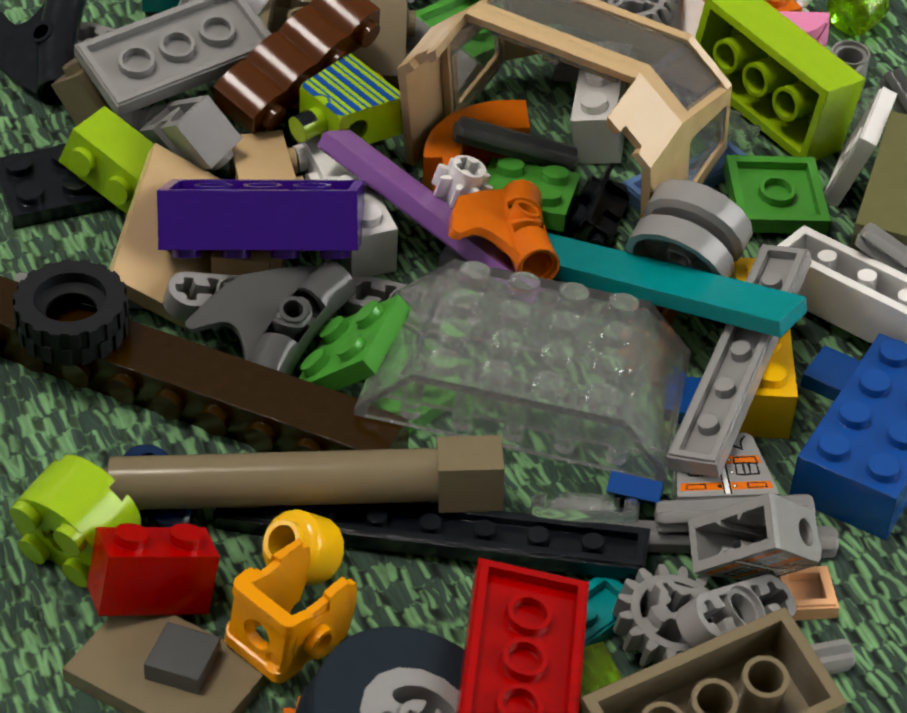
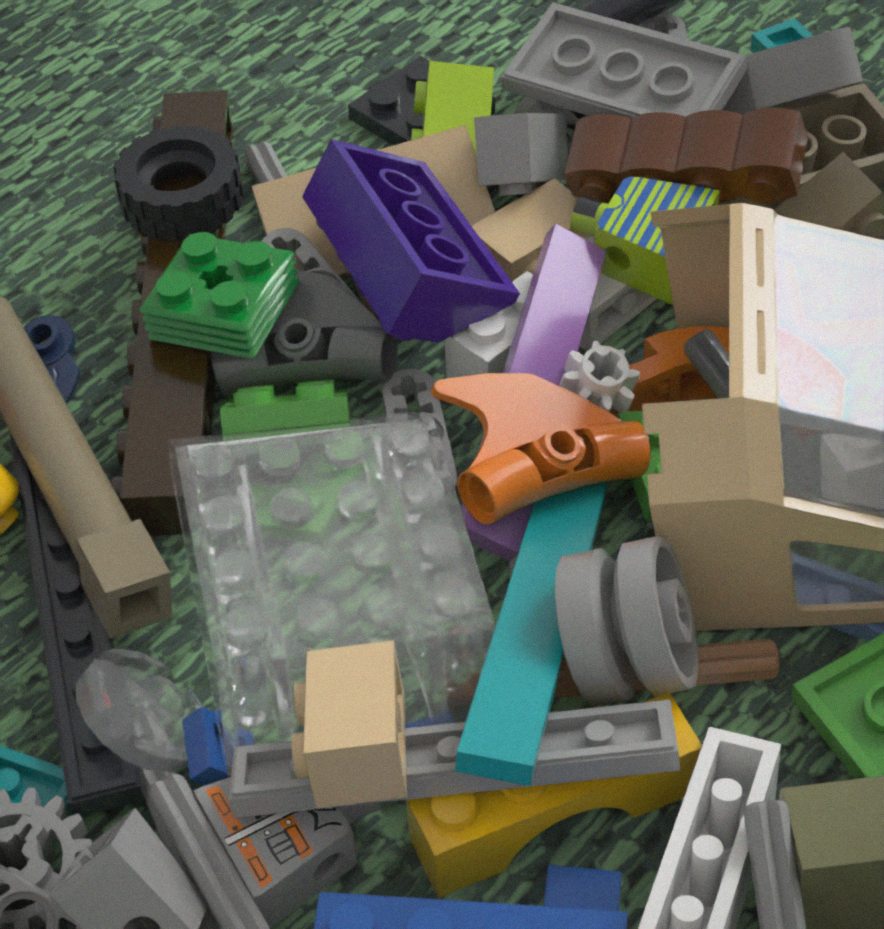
camera: 70 degrees right, 5 degrees up
(229, 328) = (220, 295): none -> green brick
(711, 371) = (351, 725): none -> tan brick

